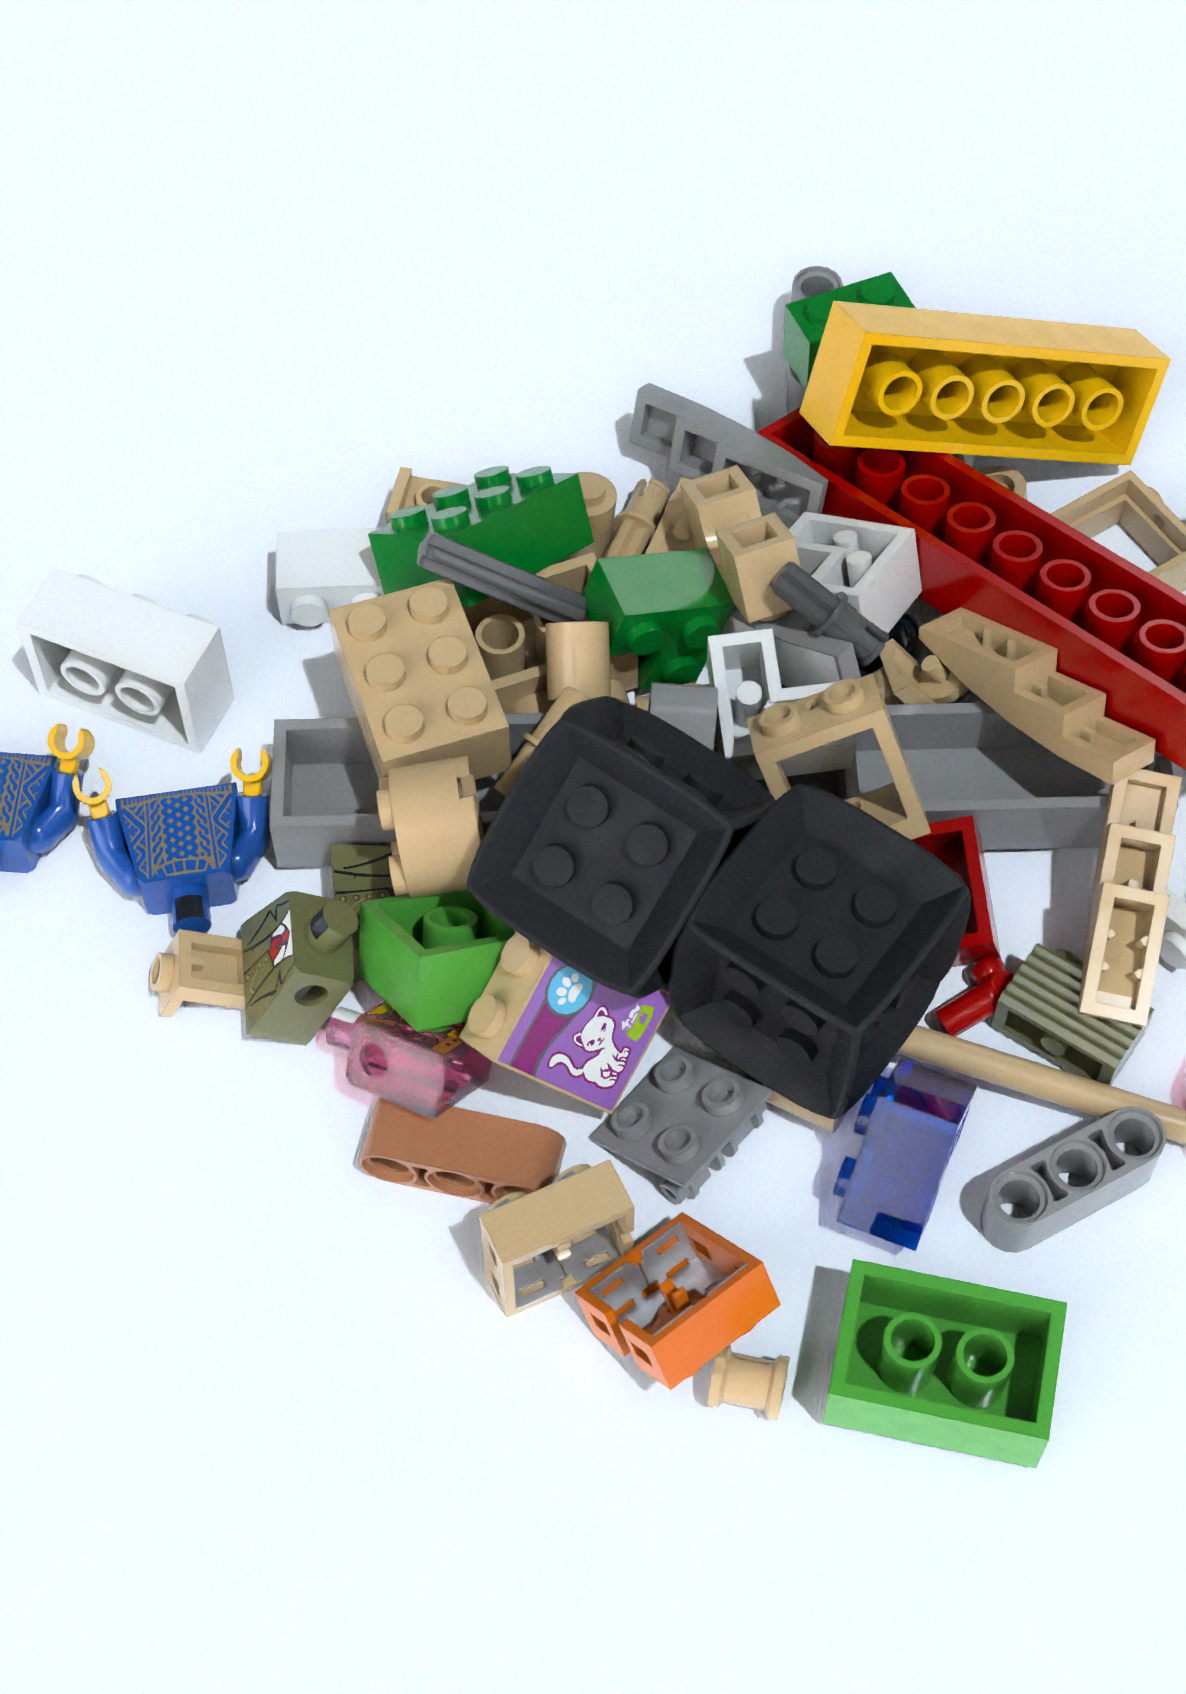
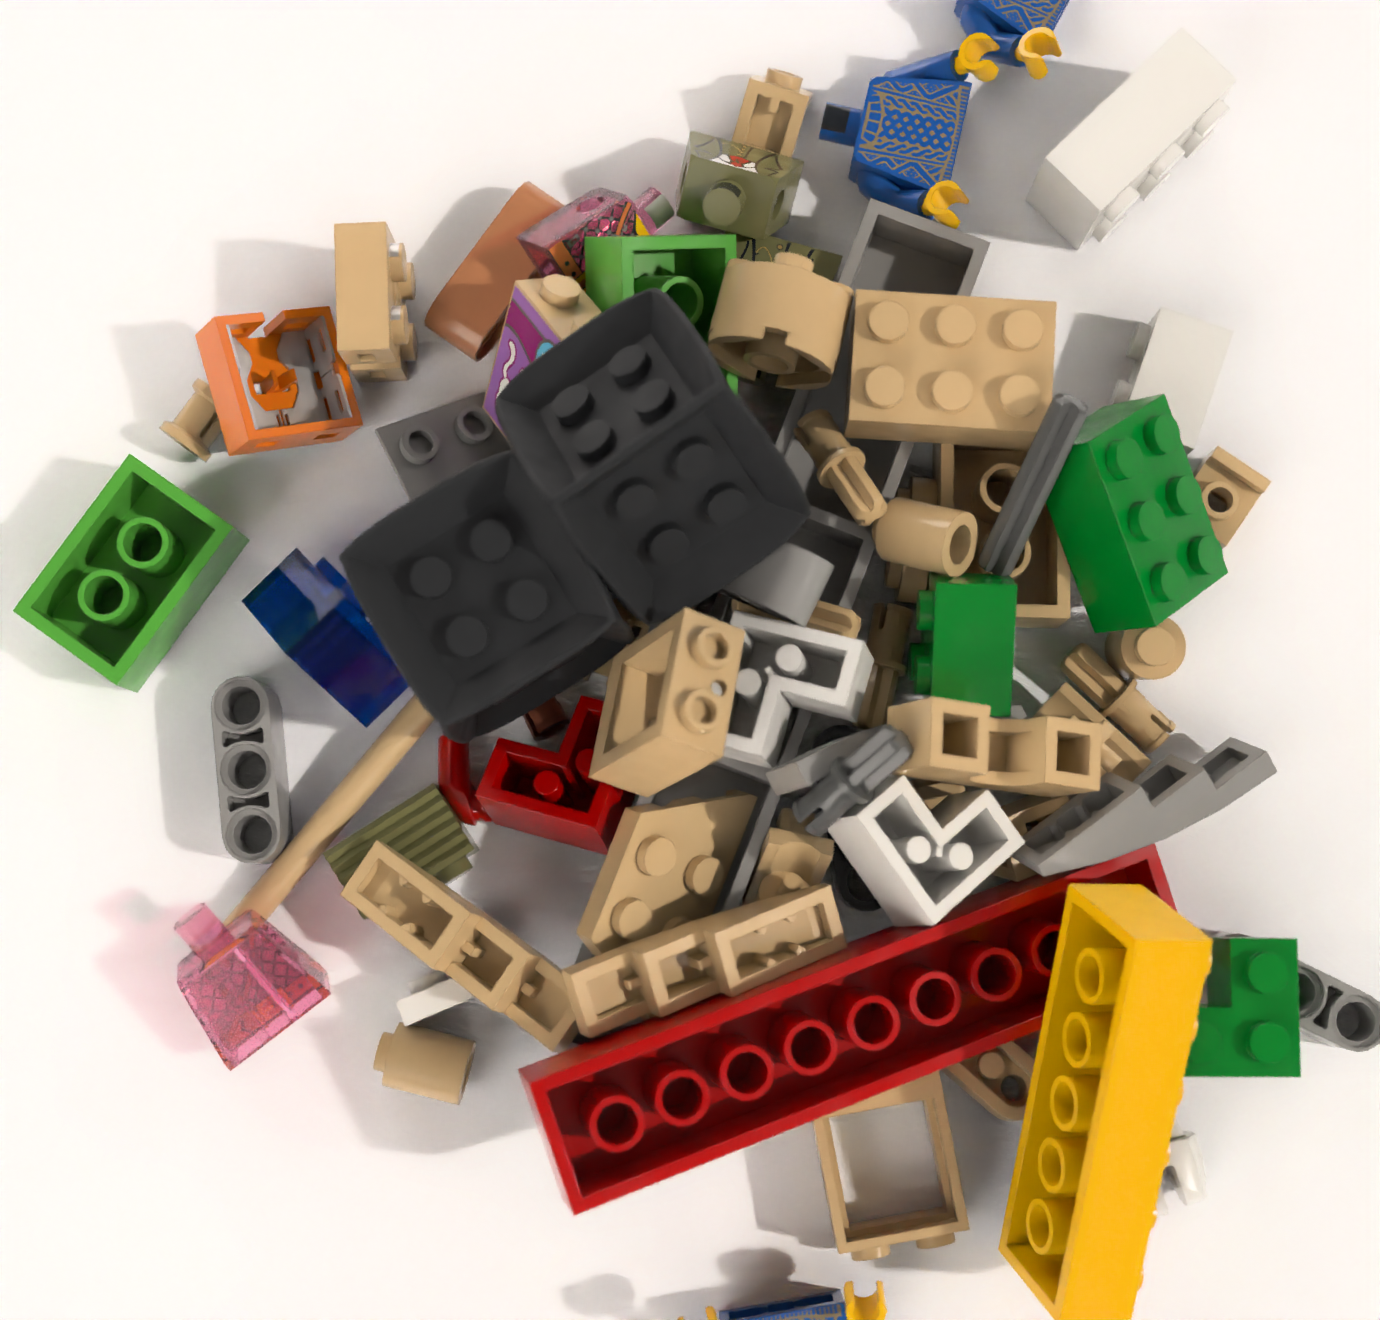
camera: 115 degrees right, 25 degrees up
(987, 775) = (664, 868): none -> tan wing

